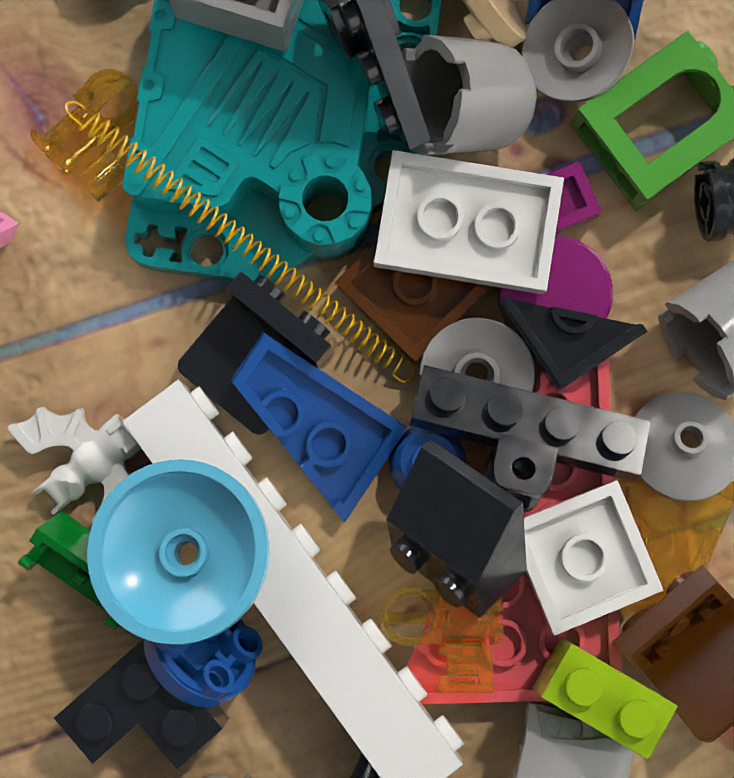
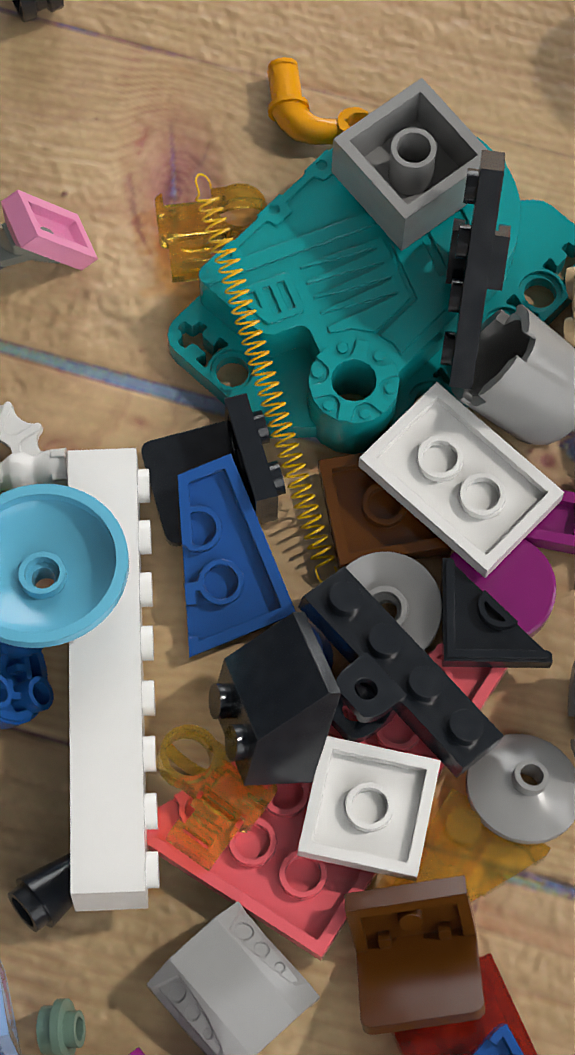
camera: 35 degrees right, 15 degrees down
(604, 698) = (304, 928): lime brick -> none

